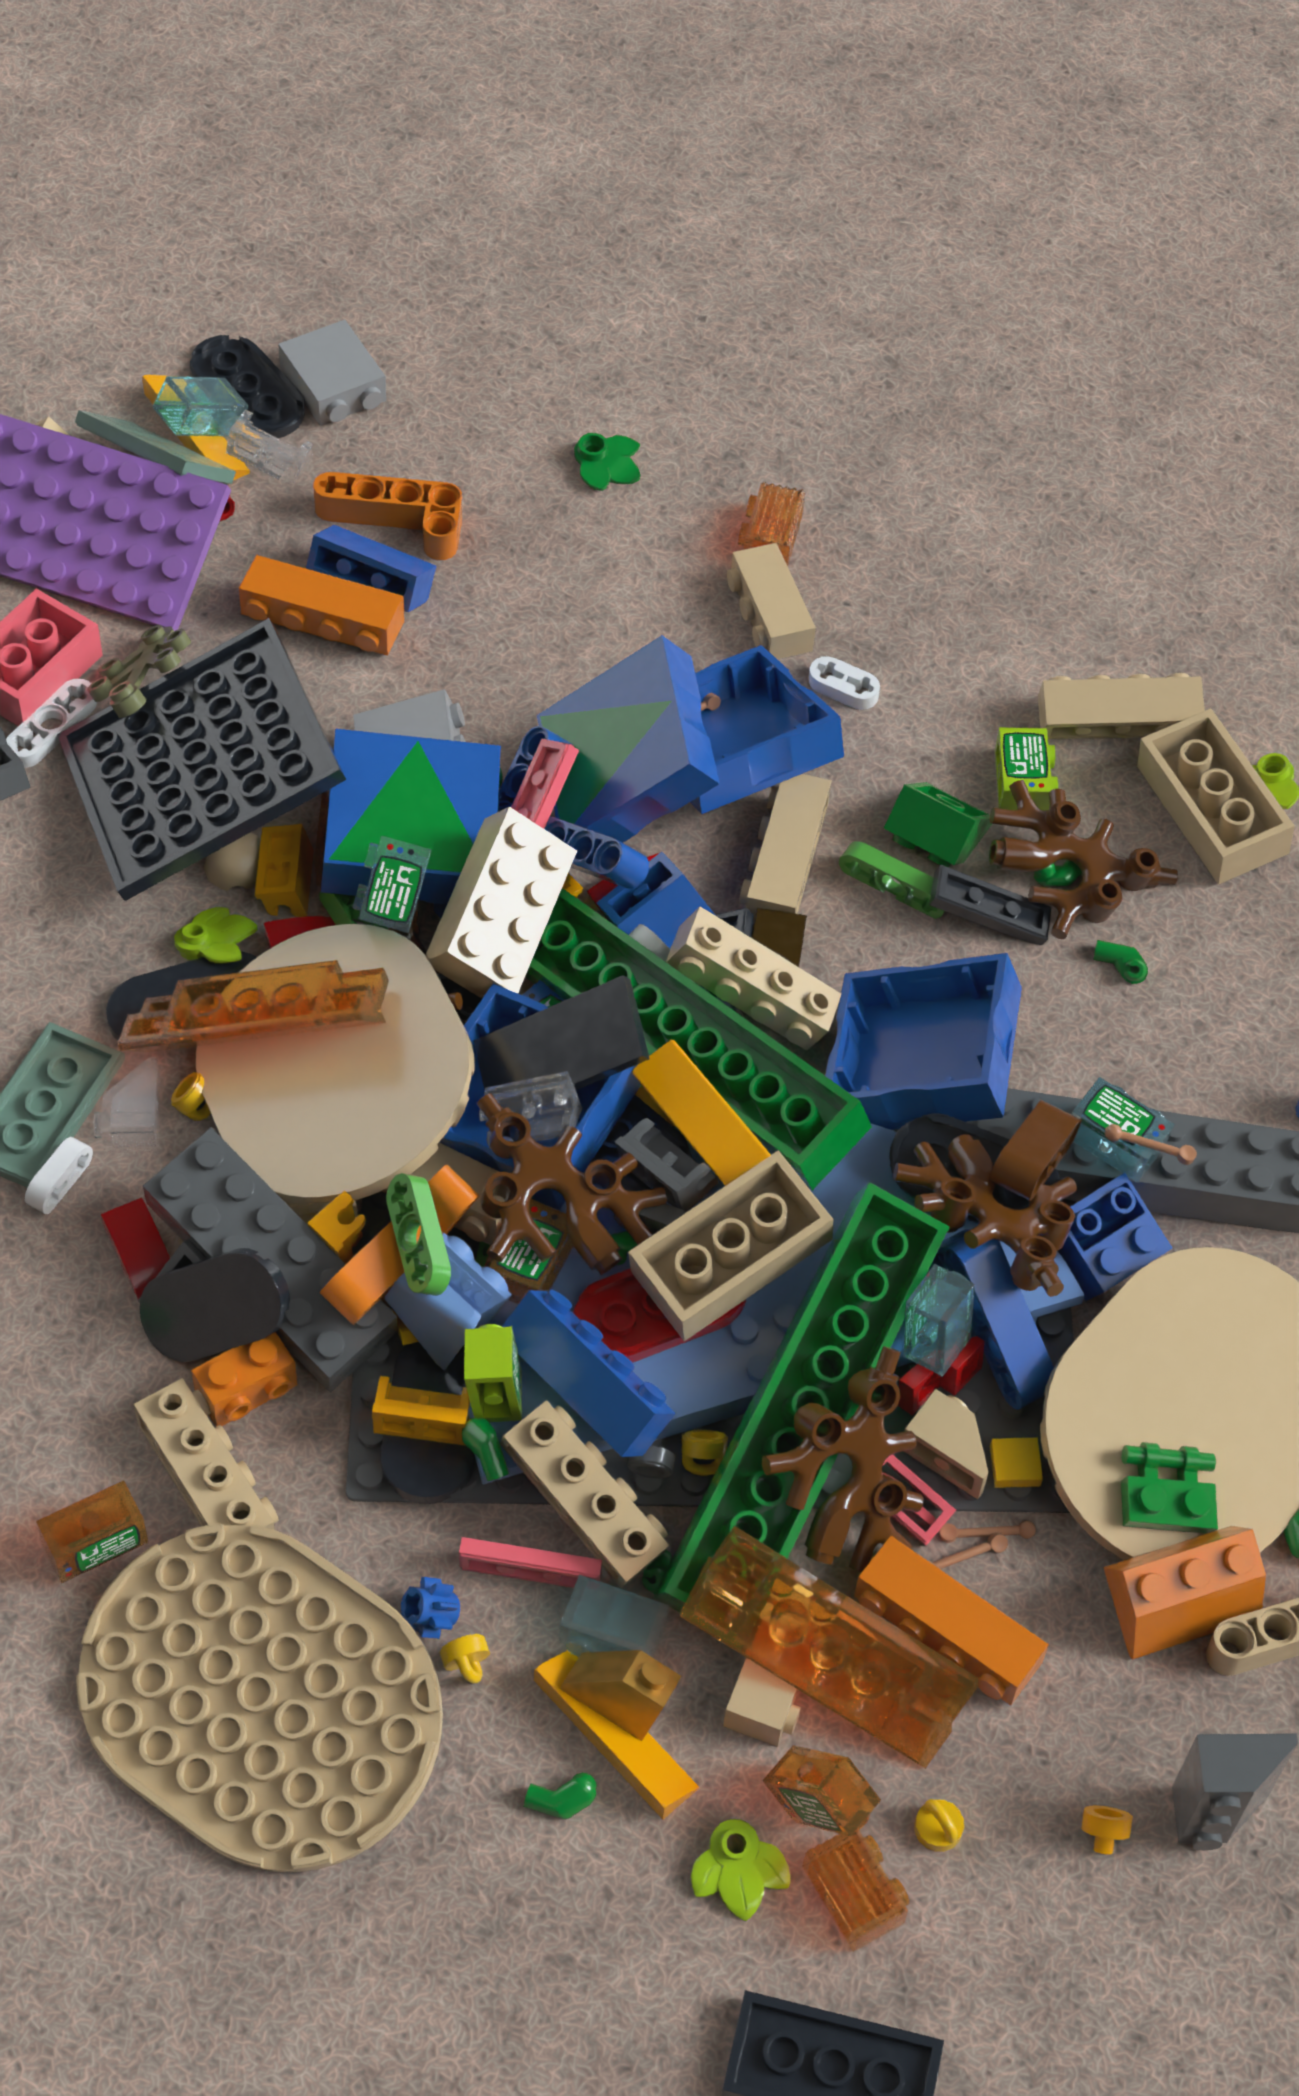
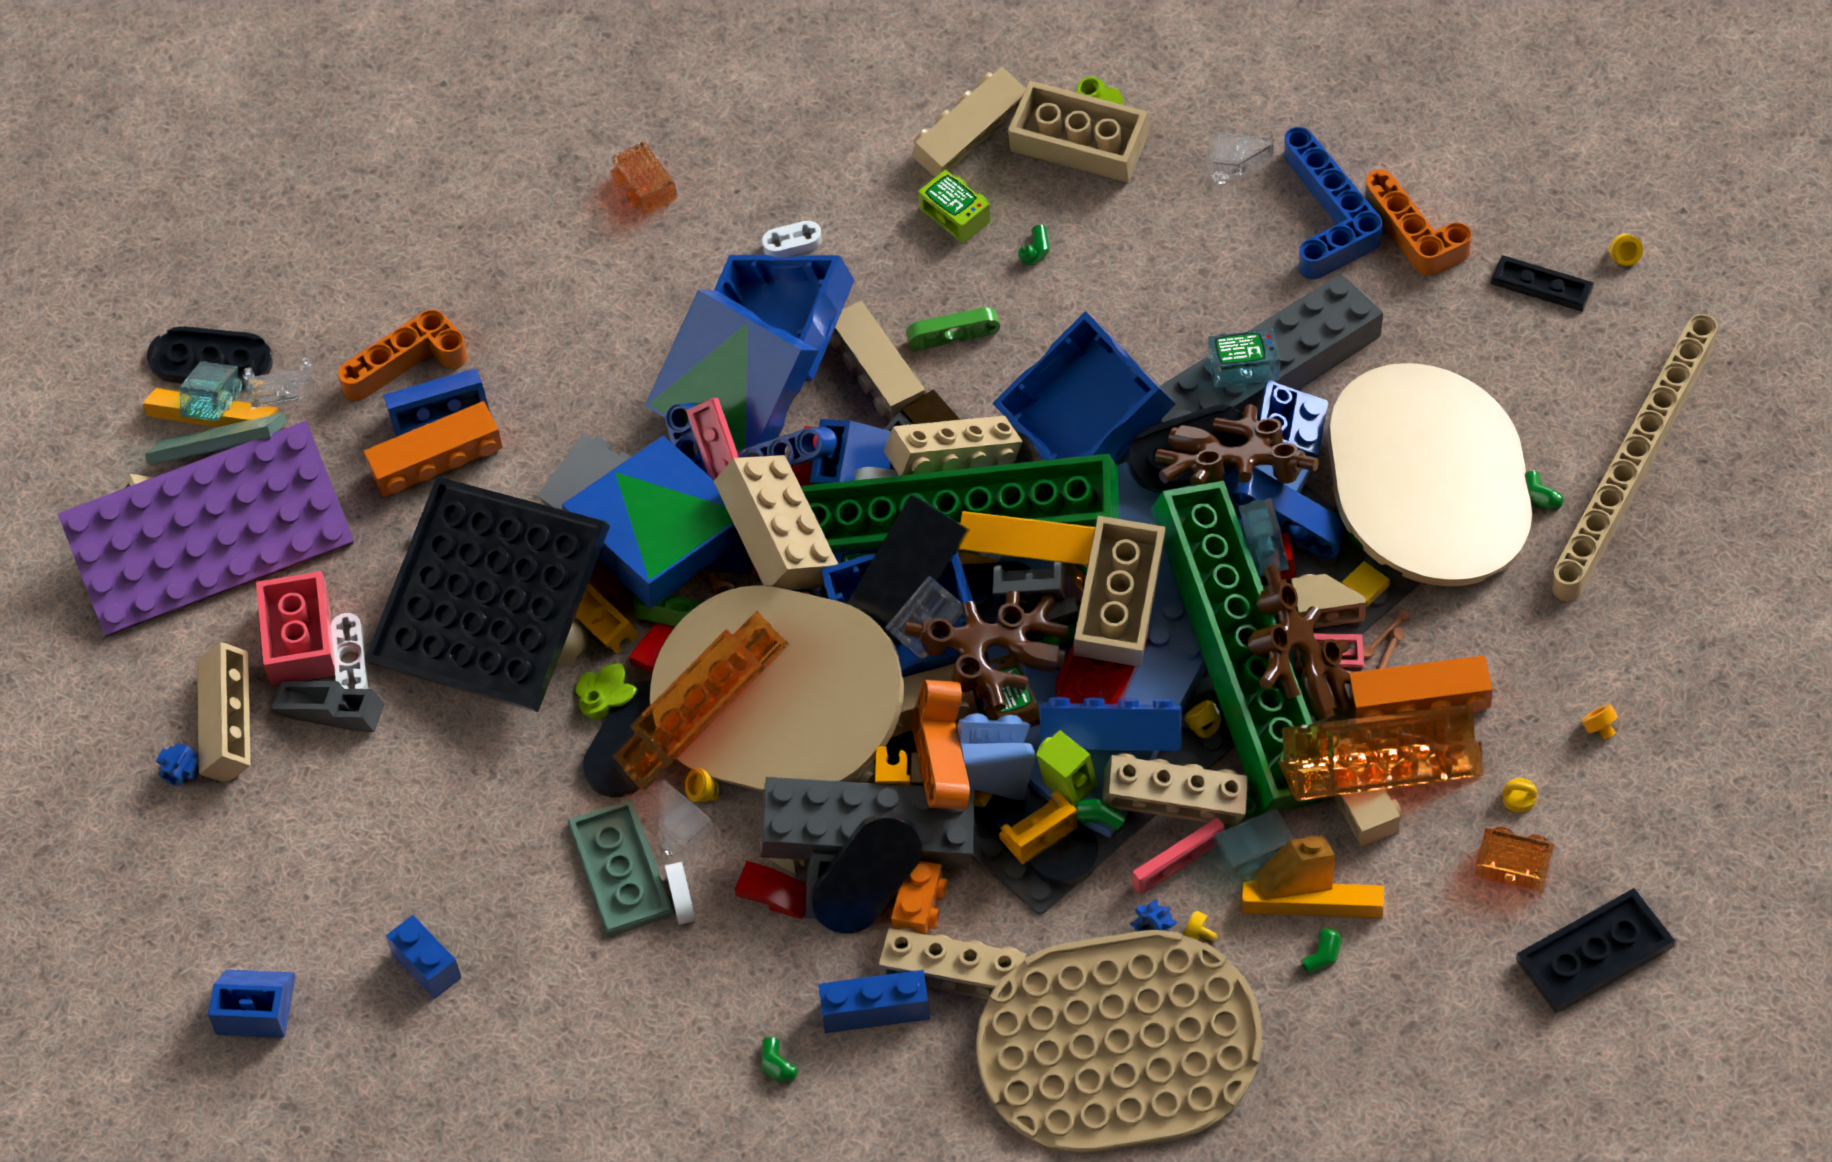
camera: 35 degrees left, 0 degrees up
(92, 1531) = (934, 1046): clear orange brick -> none
(95, 1435) = (874, 1001): none -> blue brick
(123, 678) = (357, 558): olive plant -> none
(333, 372) = (260, 303): light grey brick -> none
(392, 884) = (703, 561): brick -> none
(426, 1262) = (938, 728): bright green beam -> none
(606, 460) = (496, 221): green plate -> none
(653, 1464) = (1189, 746): dark grey tile -> none
(742, 1875) = (1452, 906): lime plate -> none
(771, 601) = (697, 225): tan brick -> none
(822, 1790) = (1453, 824): clear orange brick -> none
(936, 823) = (941, 277): green slope -> none
(990, 905) = (1023, 299): black tile -> none
(1035, 1150) = (1220, 403): reddish brown beam -> none
(1100, 867) = (1013, 222): reddish brown plant -> none
(1124, 958) = (1125, 267): green arm -> none
(1168, 1503) = (1466, 534): green plate -> none
(1185, 1154) = (1296, 340): nougat hinge -> none
(1186, 1589) = (1519, 568): orange slope -> none
(1226, 1783) = (1642, 643): dark grey slope -> none

